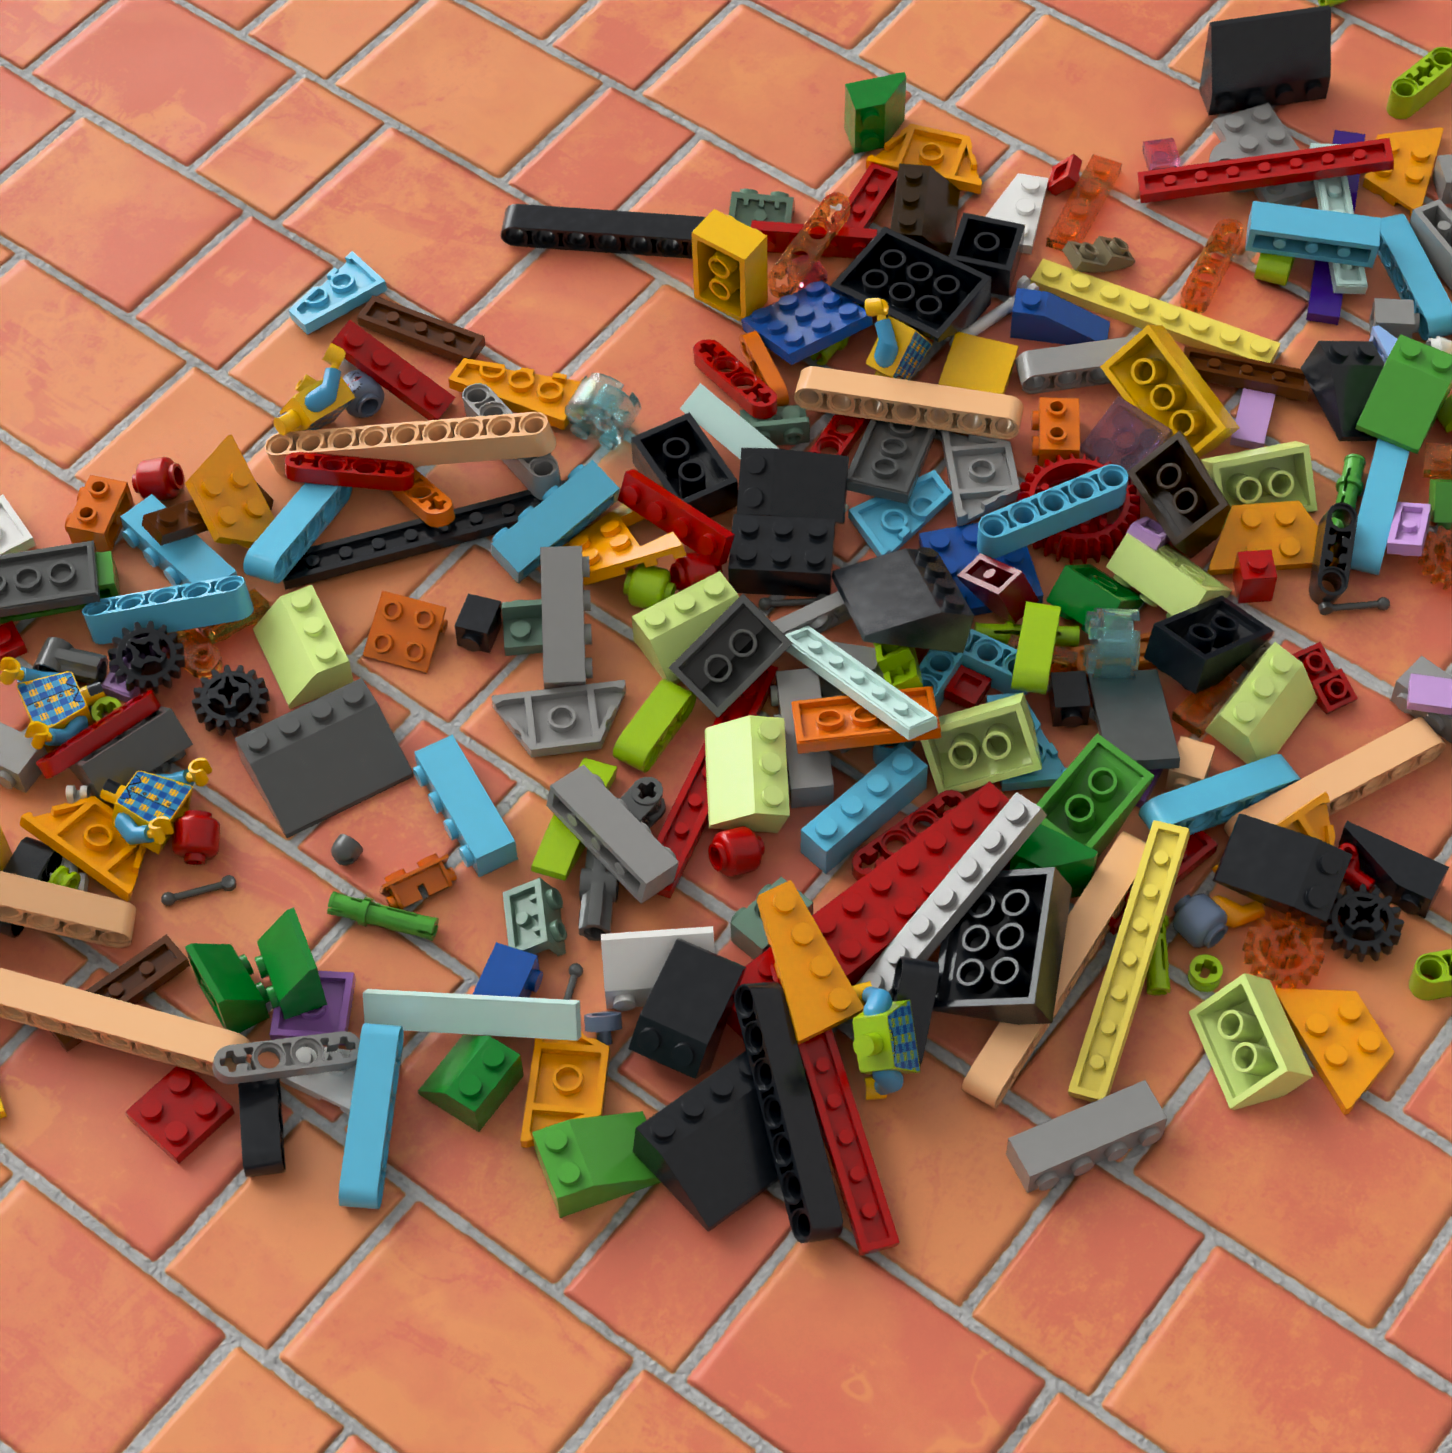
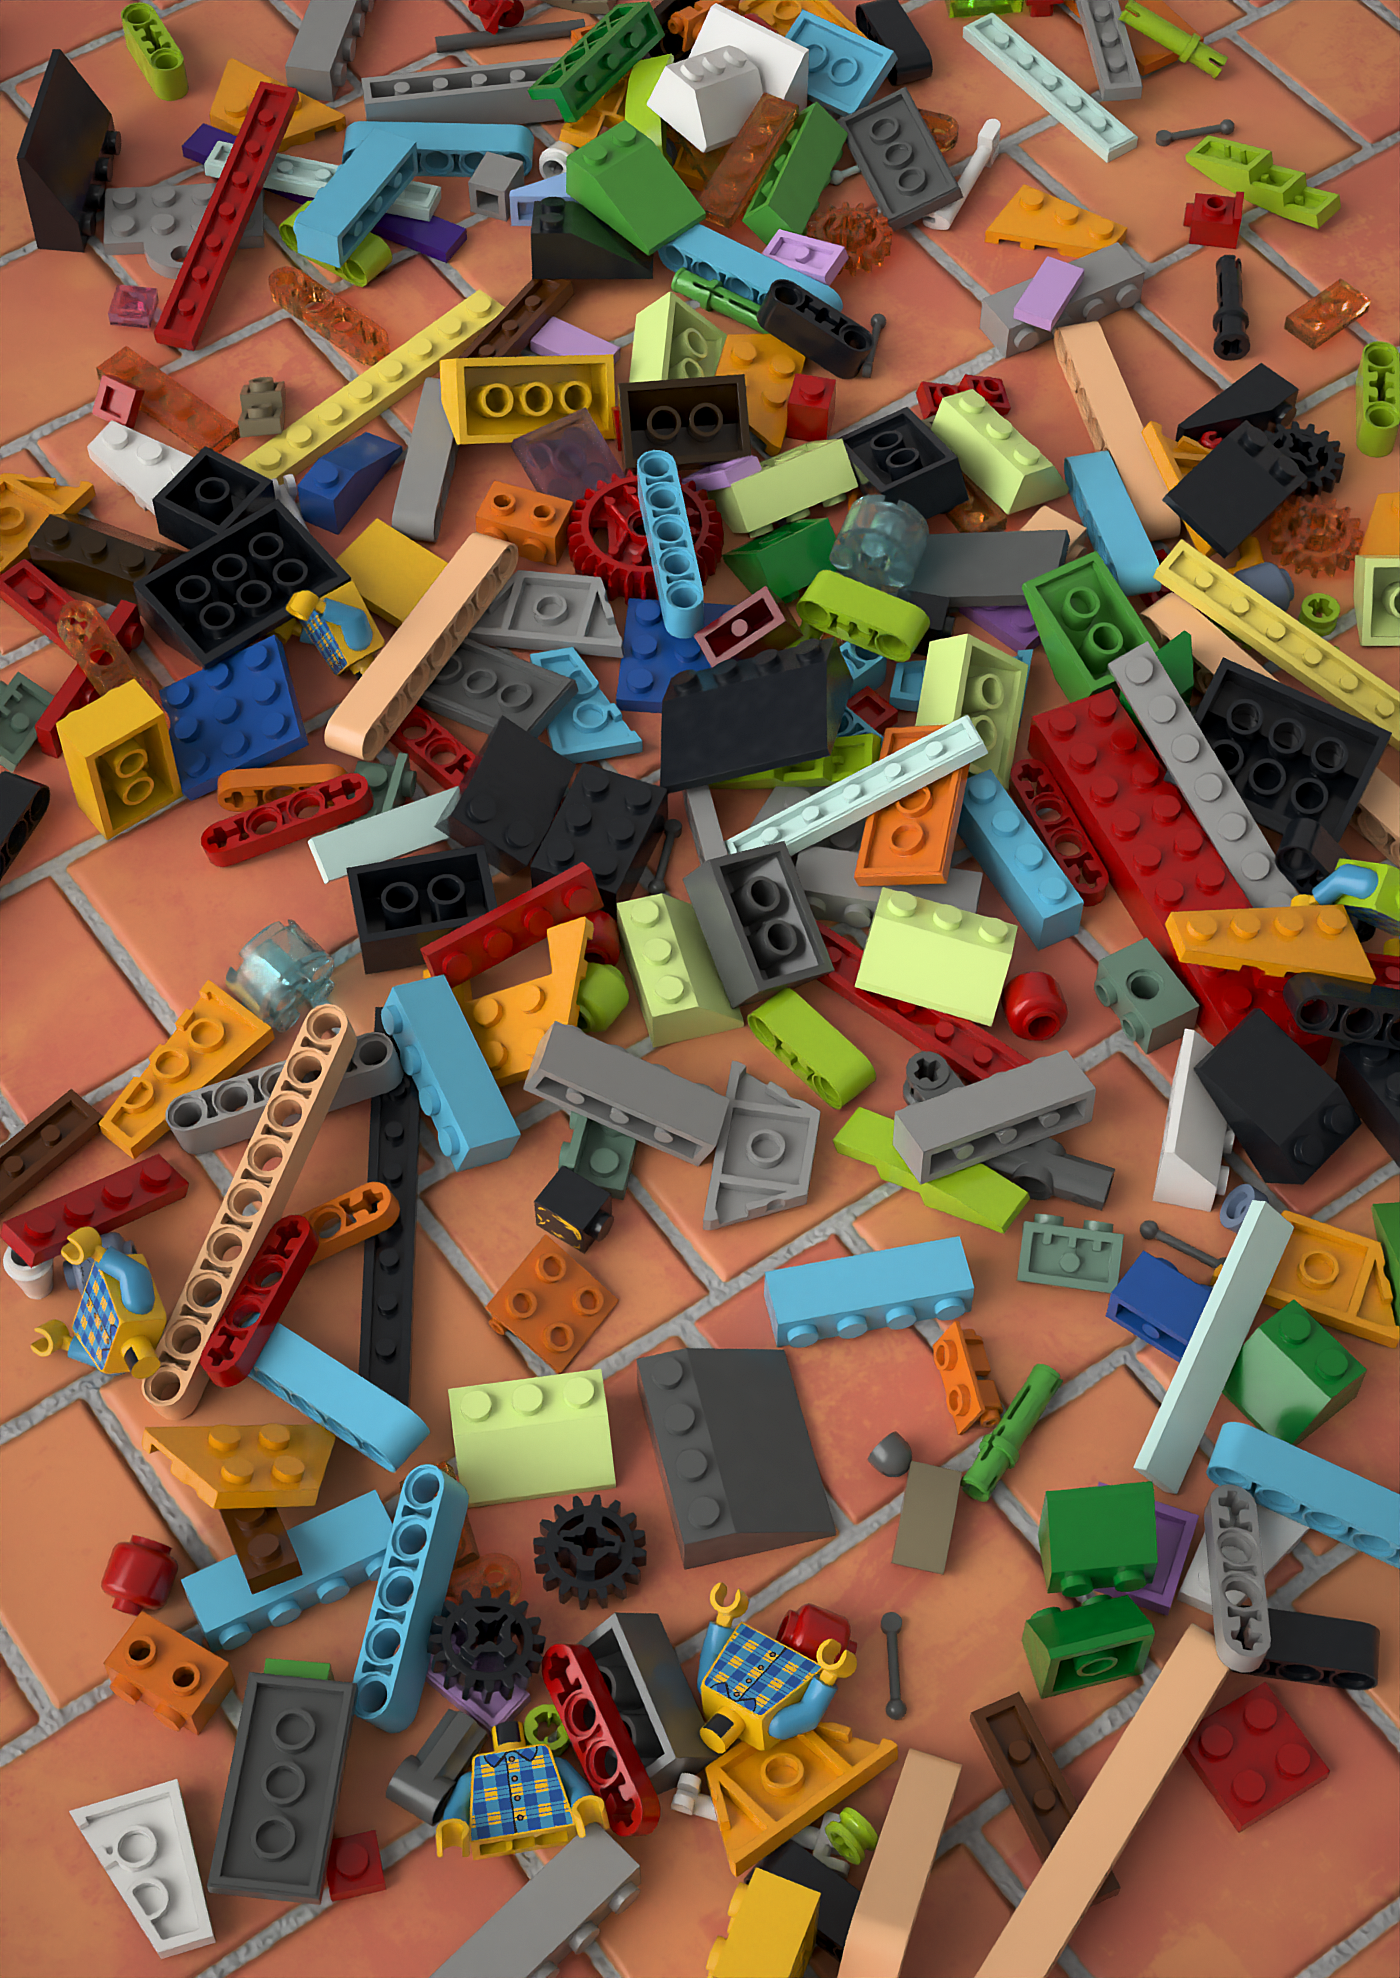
camera: 75 degrees left, 0 degrees up
(303, 877) = (926, 1517): none -> dark tan slope

